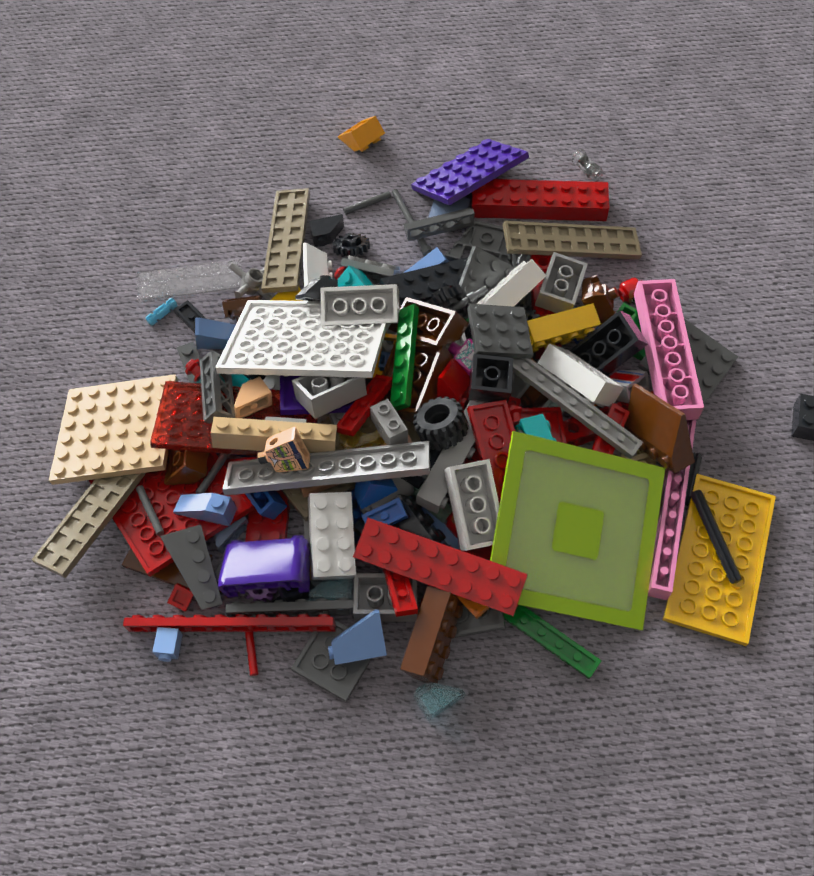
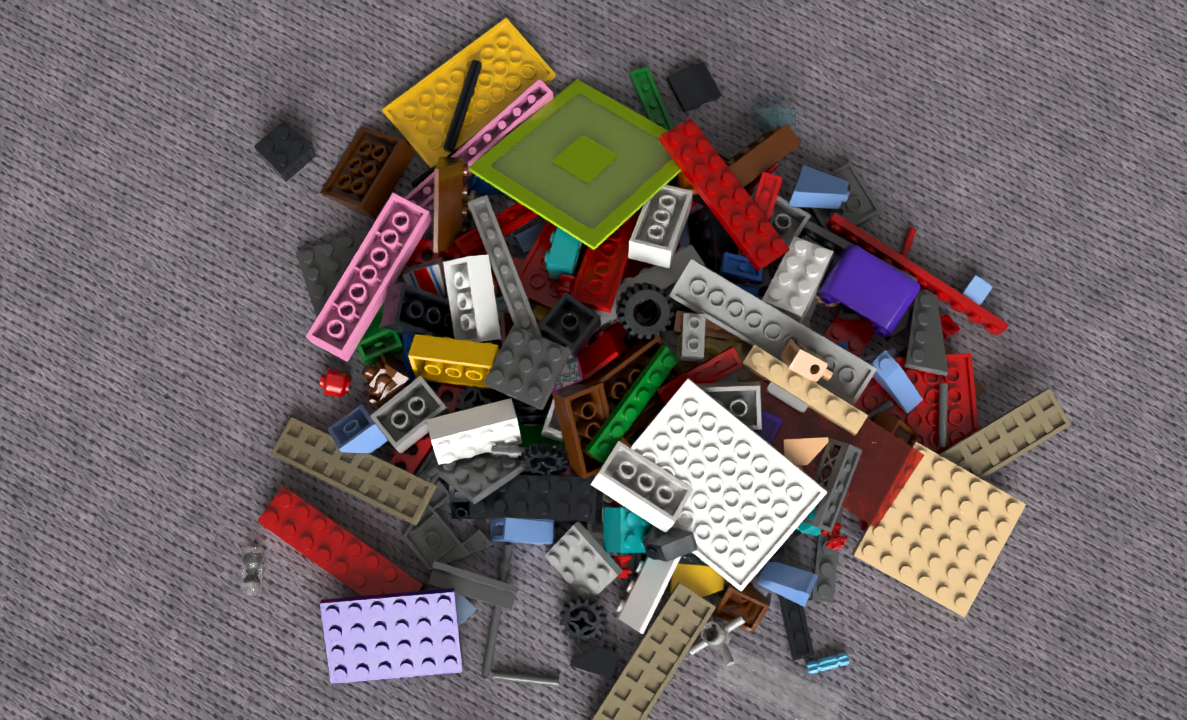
camera: 155 degrees left, 15 degrees up
(535, 687) = (693, 87): none -> black slope
(594, 254) = (357, 432): none -> medium blue slope
(740, 443) = (368, 171): none -> reddish brown slope

